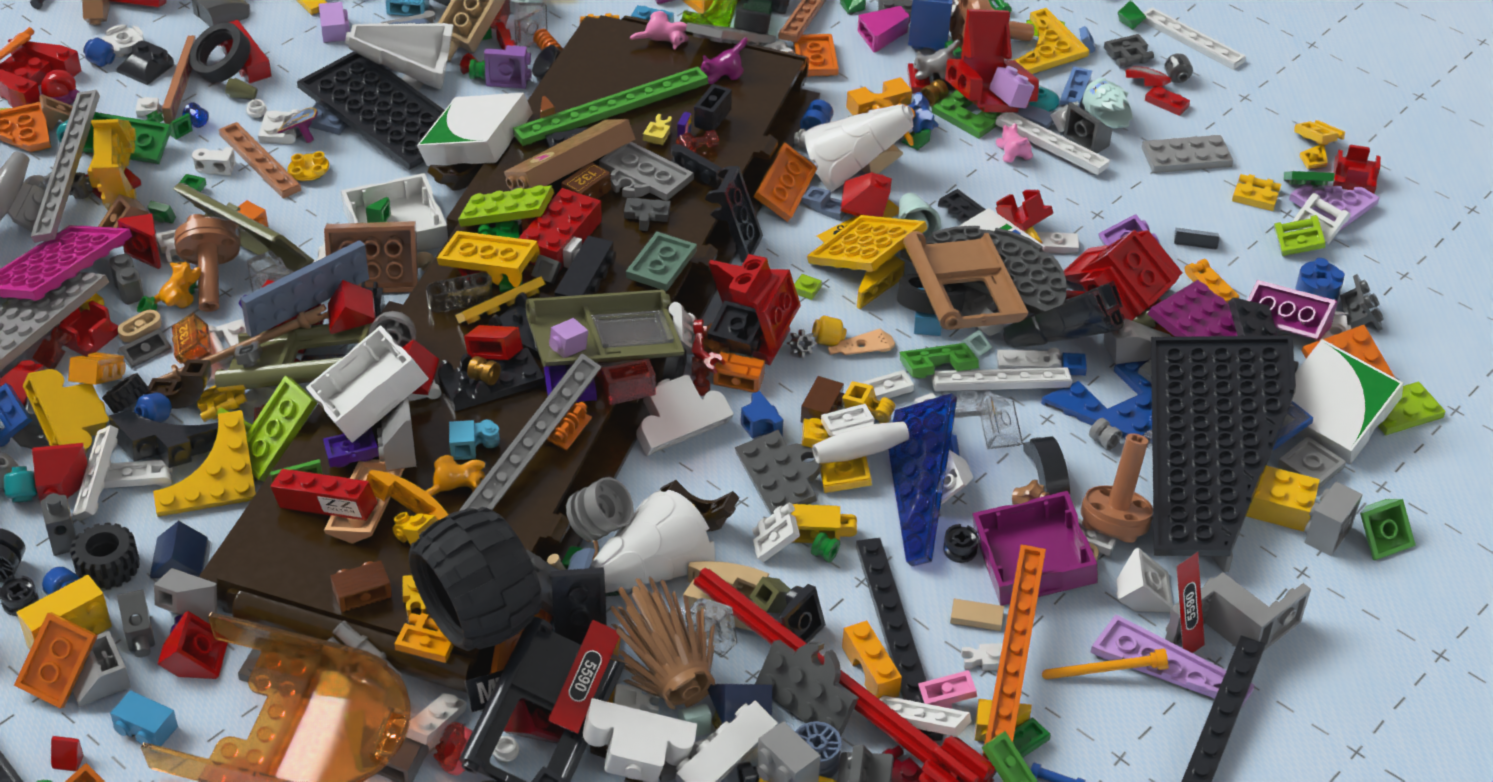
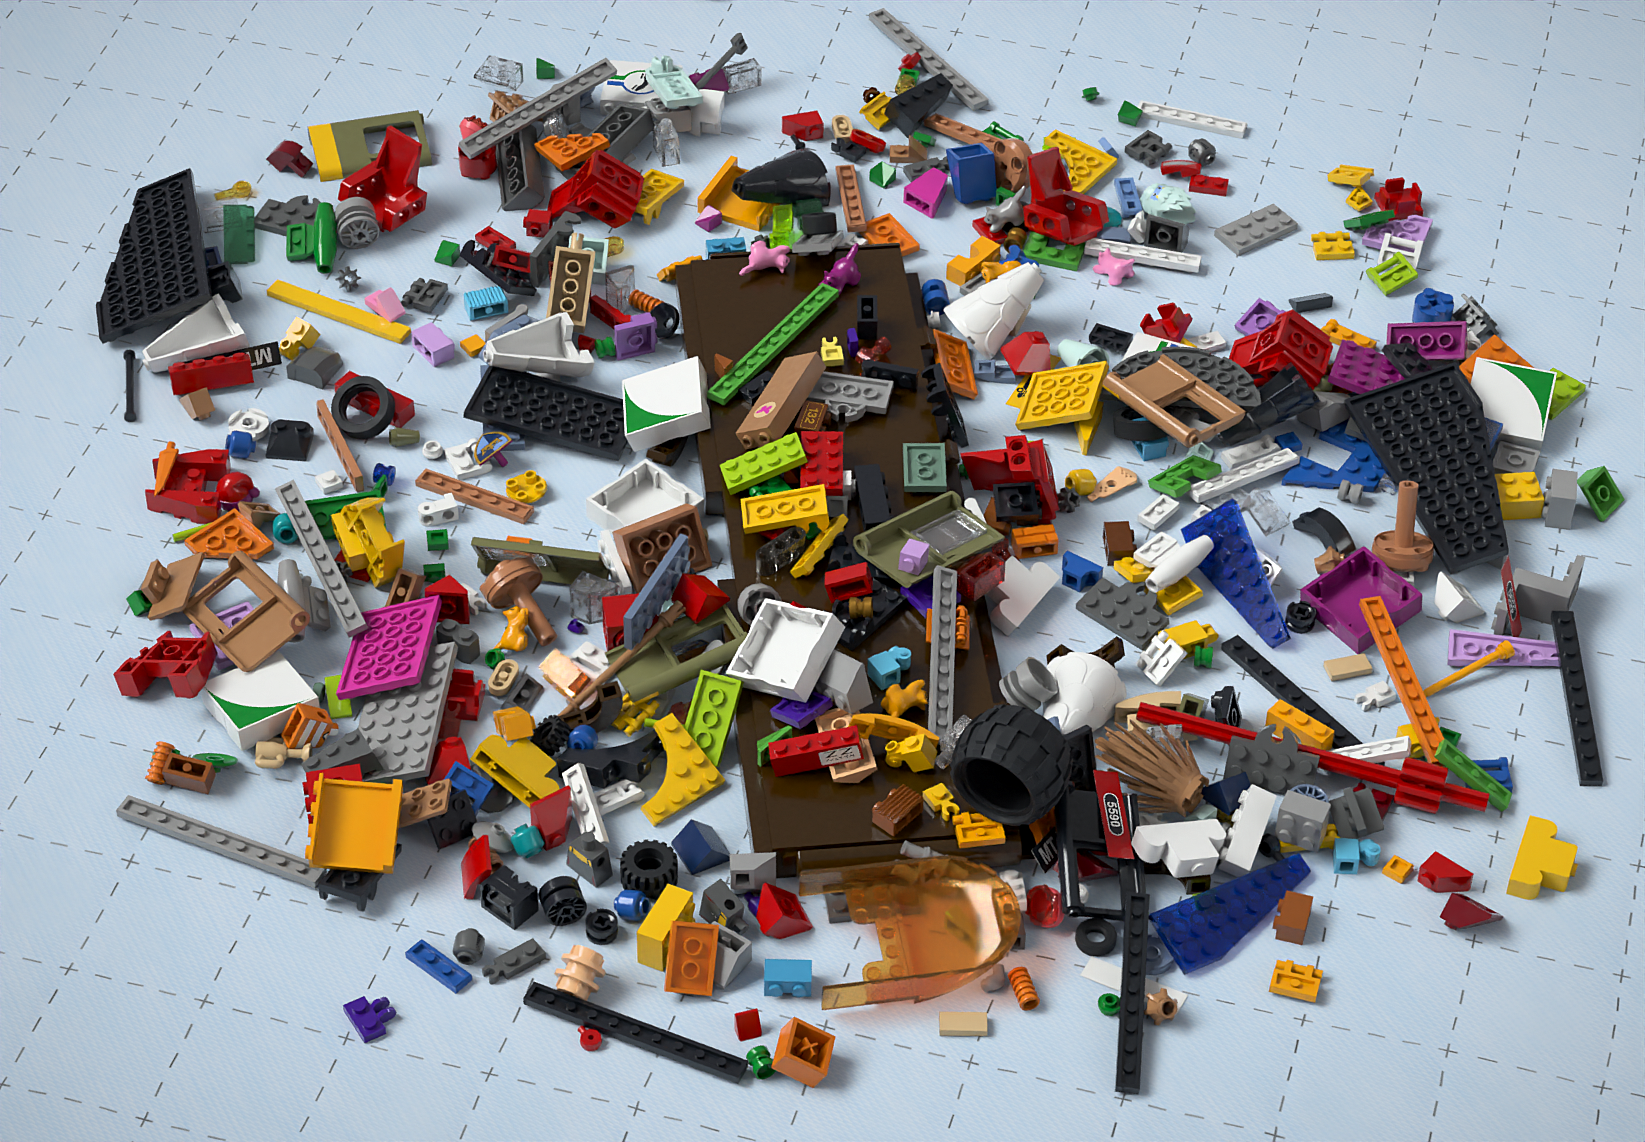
camera: 25 degrees left, 0 degrees up
(155, 116) = (348, 488): green plate -> none
(248, 354) = (642, 664): dark grey plate -> none
(378, 211) = (628, 508): green slope -> none
(646, 211) = (877, 428): dark grey hinge -> none
(698, 347) = (1009, 538): red piece -> none
(864, 394) = (1150, 526): yellow brick -> none
(948, 689) = (1372, 727): bright pink slope -> none
(1011, 87) = (1086, 215): lavender brick -> none

